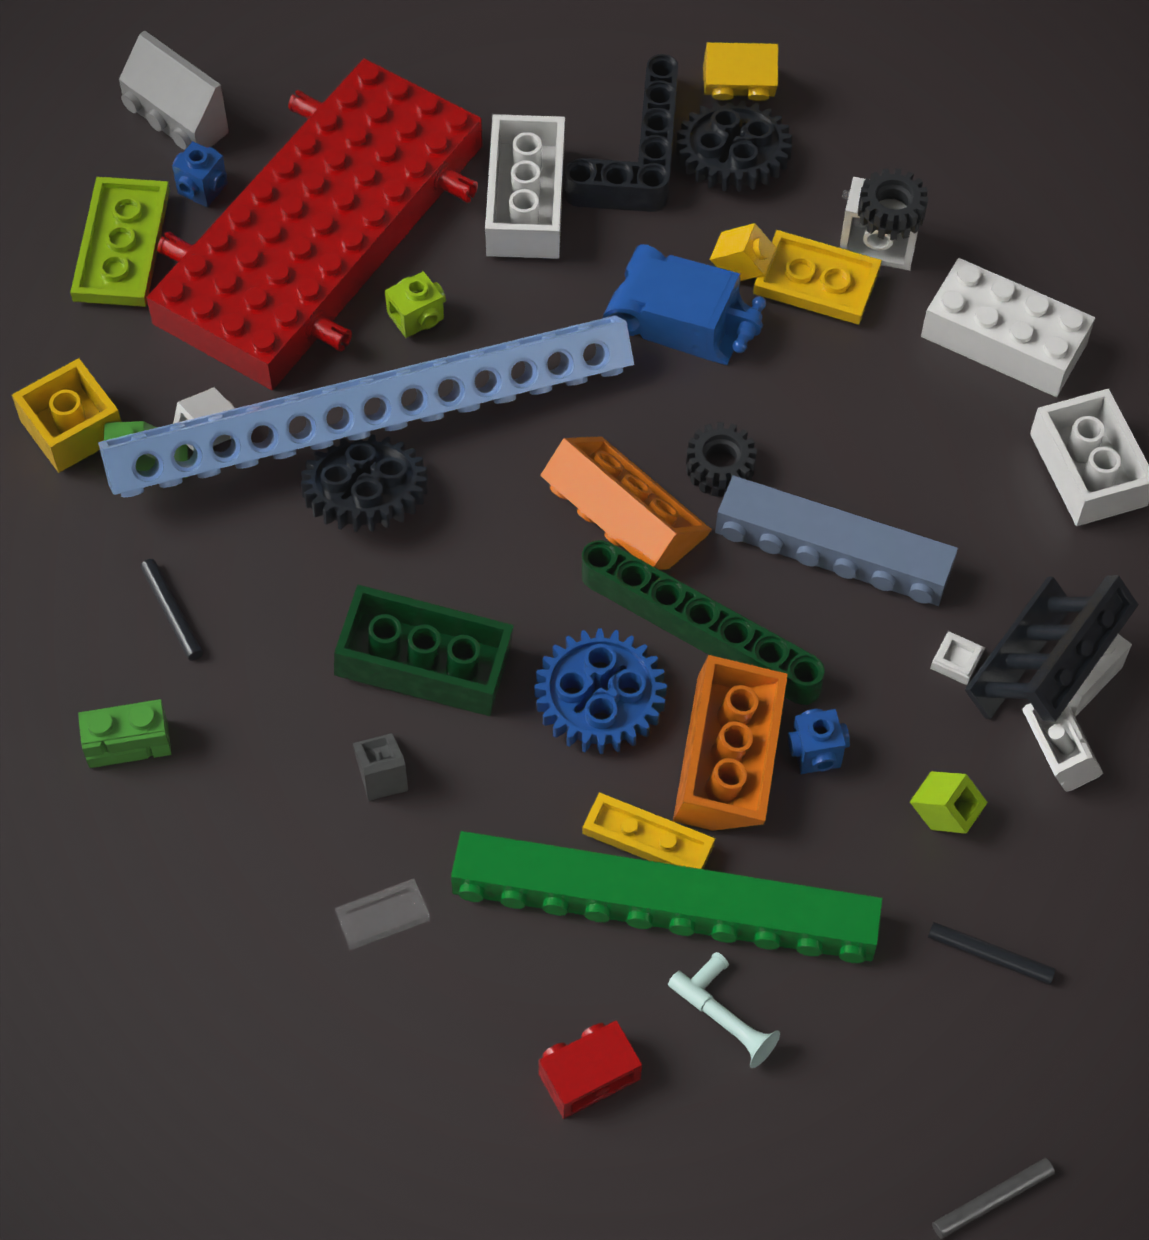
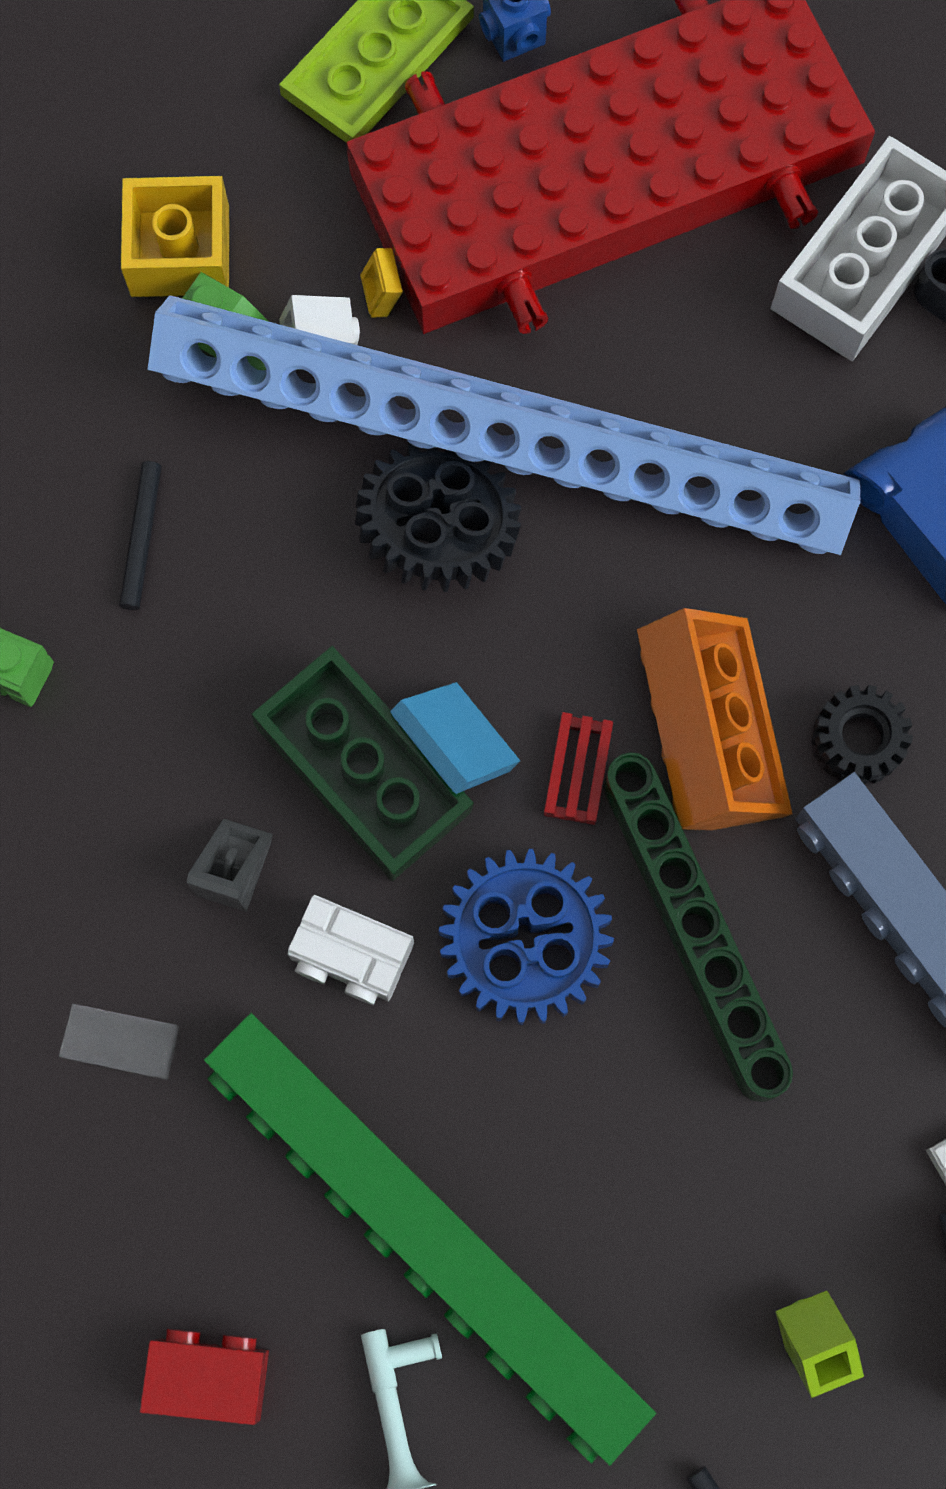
camera: 35 degrees right, 15 degrees up
(226, 371) = (381, 282): none -> yellow tile
(415, 304) = (644, 325): lime brick -> none
(471, 599) = (455, 737): none -> dark azure tile
(495, 764) = (350, 949): none -> white brick
(549, 553) = (586, 726): none -> red tile
(646, 834) = (458, 1147): yellow plate -> none
(730, 745) = (620, 1106): orange slope -> none
(818, 740) = (704, 1166): blue brick -> none

